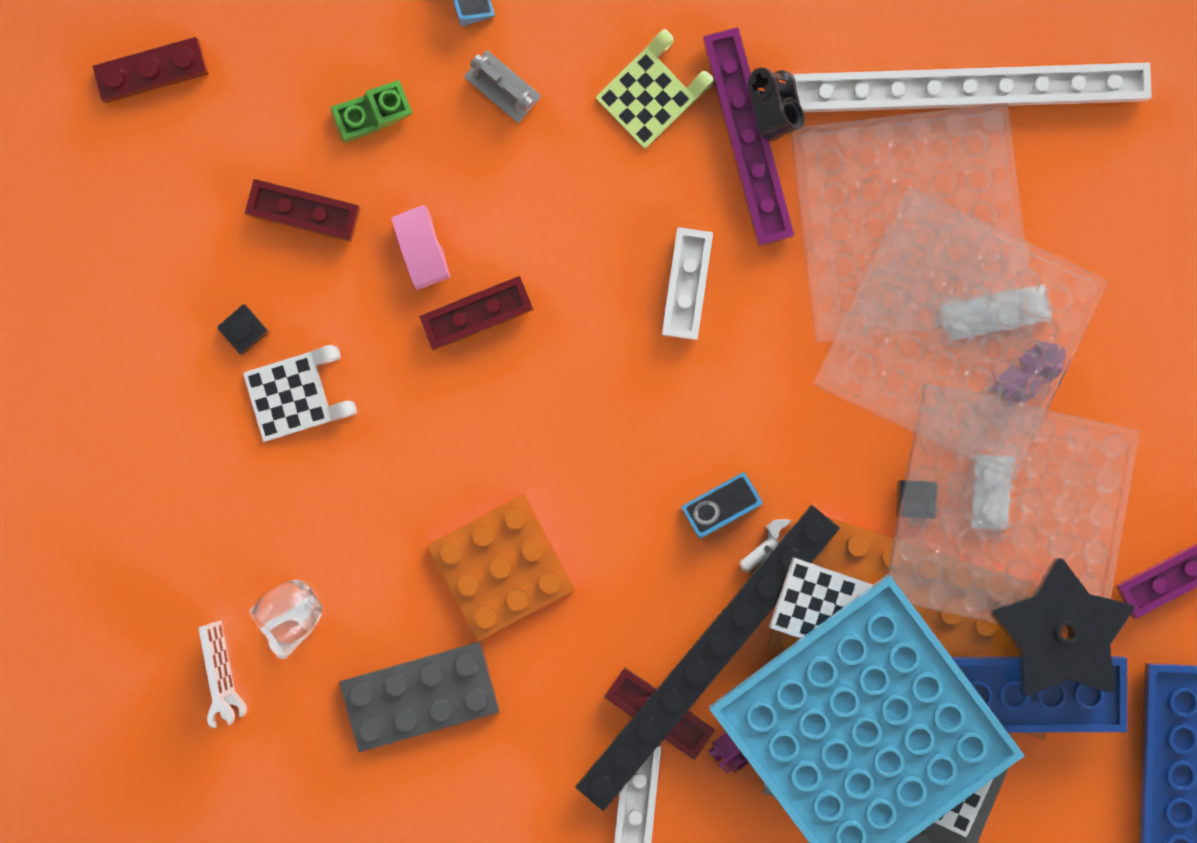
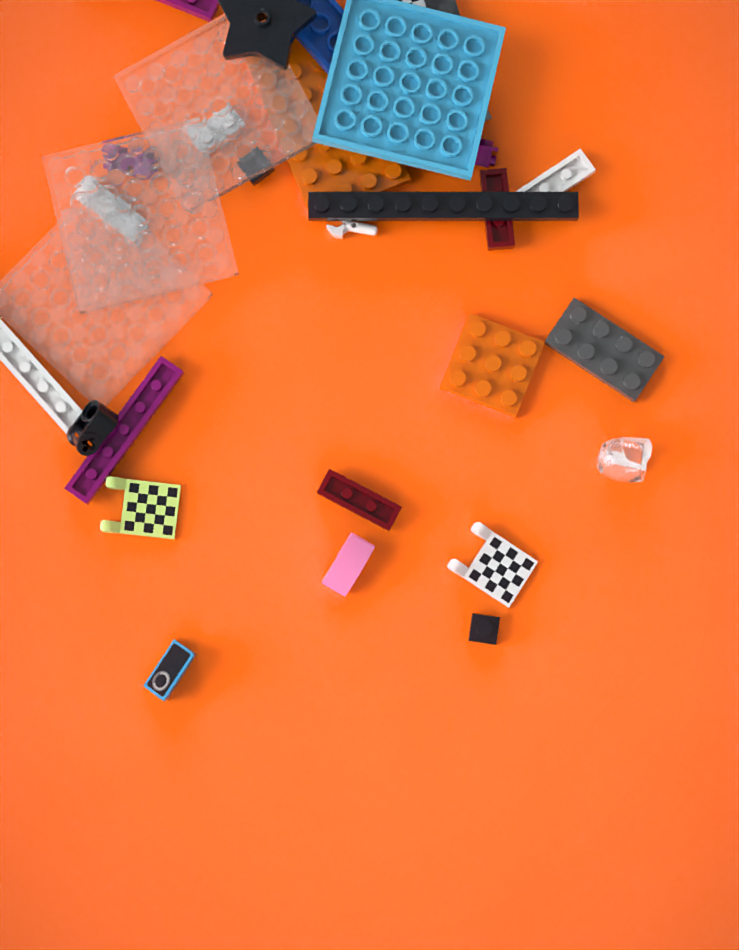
camera: 130 degrees left, 5 degrees down
(150, 69) = (378, 818): dark red plate -> none
(219, 674) = (693, 464): white flag -> none
(302, 210) = (385, 652): dark red plate -> none
(371, 112) = (292, 663): bright green slope -> none
(502, 86) = (213, 598): light grey hinge -> none
(687, 283) = (240, 394): white plate -> none
(721, 505) = (351, 270): black slope -> none
(811, 597) = (359, 173): white flag -> none

